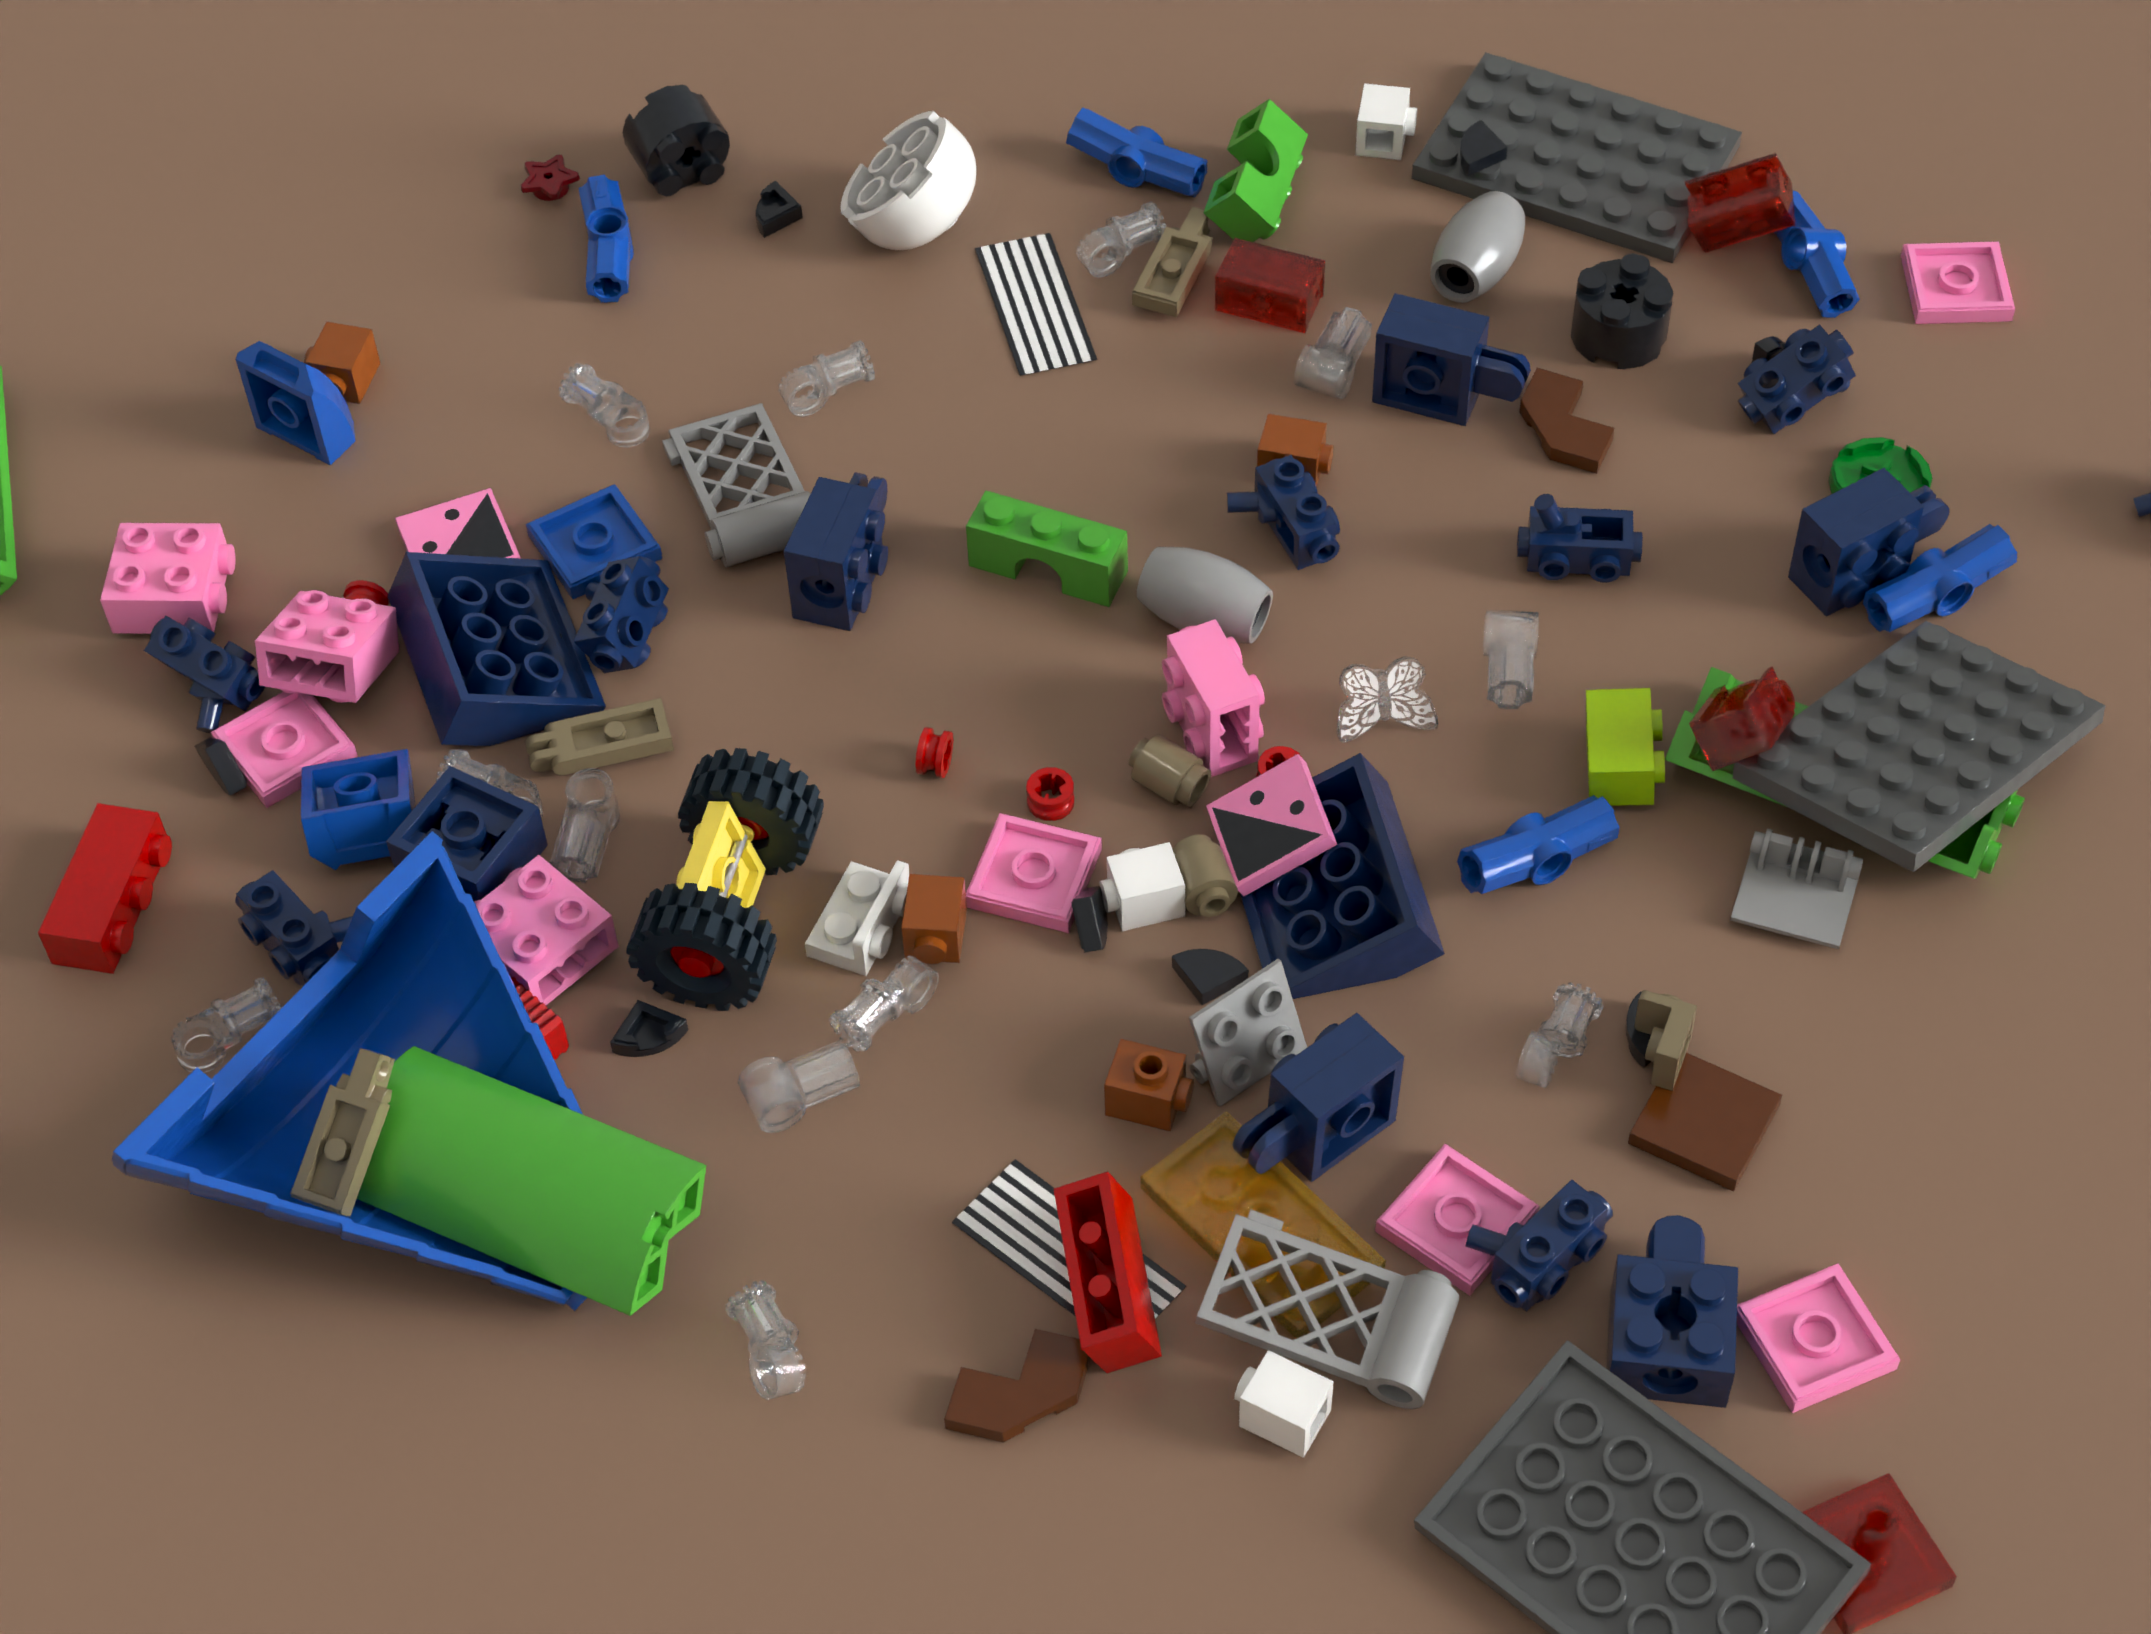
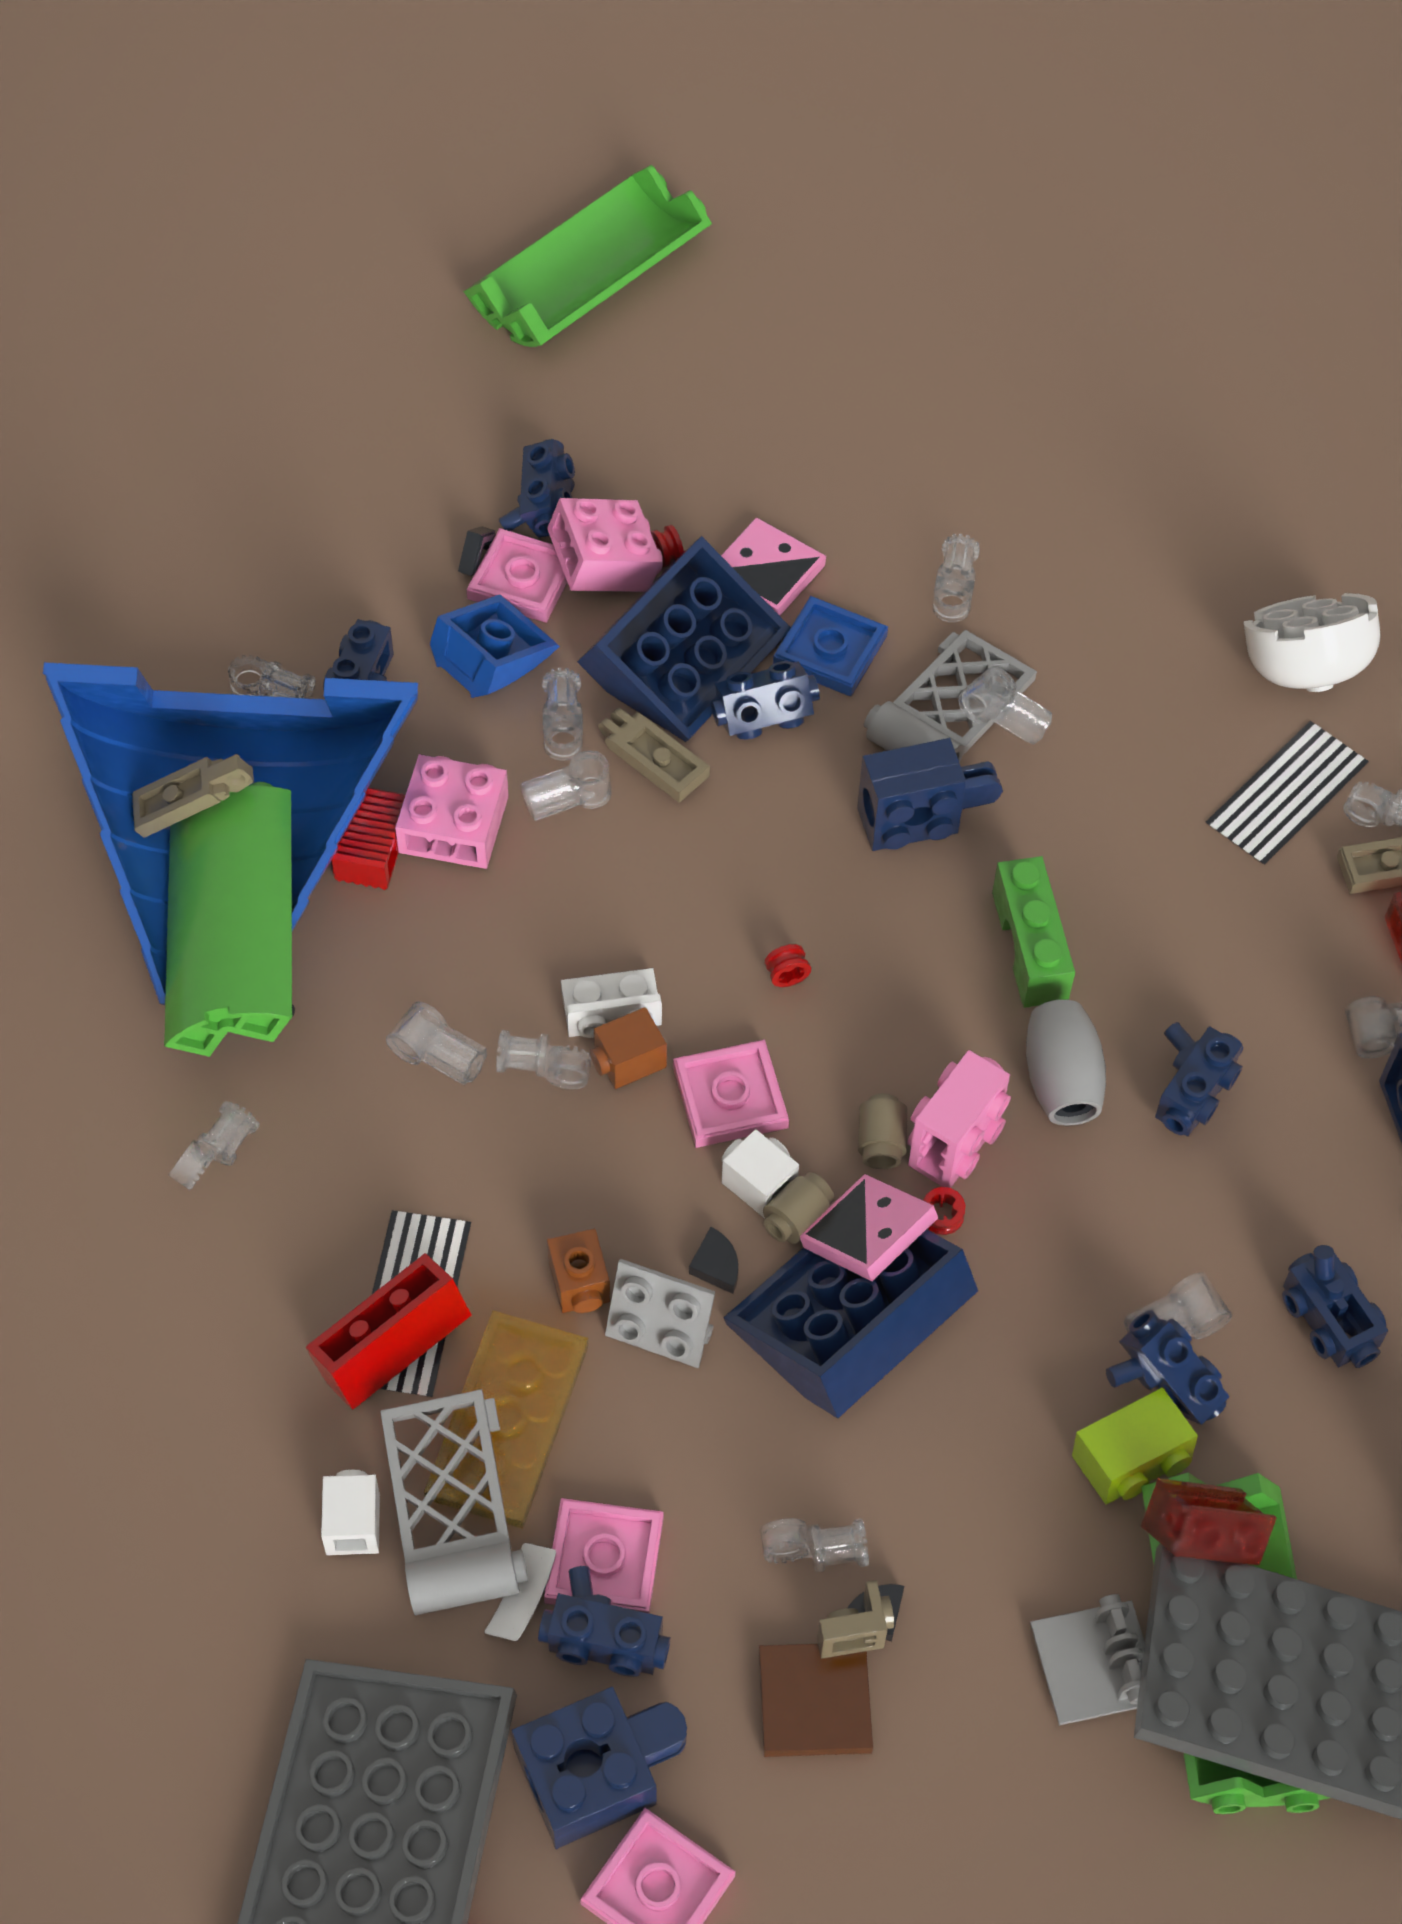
camera: 55 degrees right, 5 degrees up
(105, 888) = (331, 549): red brick -> none
(166, 572) = (601, 422): bright pink brick -> none
(295, 402) = (806, 400): blue slope -> none
(346, 357) = (867, 404): dark orange brick -> none
(466, 817) = (482, 707): dark blue brick -> none
(548, 179) = (1144, 427): dark red plate -> none
(608, 239) = (1112, 485): blue piece -> none
(648, 1031) = (427, 927): black tile -> none
(677, 140) = (1234, 468): black brick -> none
(704, 931) = (563, 892): black plate -> none
(776, 209) = (1235, 572): black tile -> none
(788, 436) = (996, 699): none -> clear piece
(826, 376) = (1088, 696): clear connector -> none
(1003, 1406) = (253, 1330): reddish brown tile -> none
(1055, 780) = (802, 1053): red bush -> none
(1091, 919) = (707, 1153): black tile -> none
(1299, 438) = (1269, 1048): dark orange brick -> none
(1325, 1101) = (624, 1398): dark blue brick -> none
(1384, 696) = (1061, 1240): clear animal -> none
(1473, 1322) = (518, 1609): none -> white sticker
(1538, 846) = (993, 1435): blue piece -> none
(1563, 669) = (1165, 1359): none -> dark blue brick

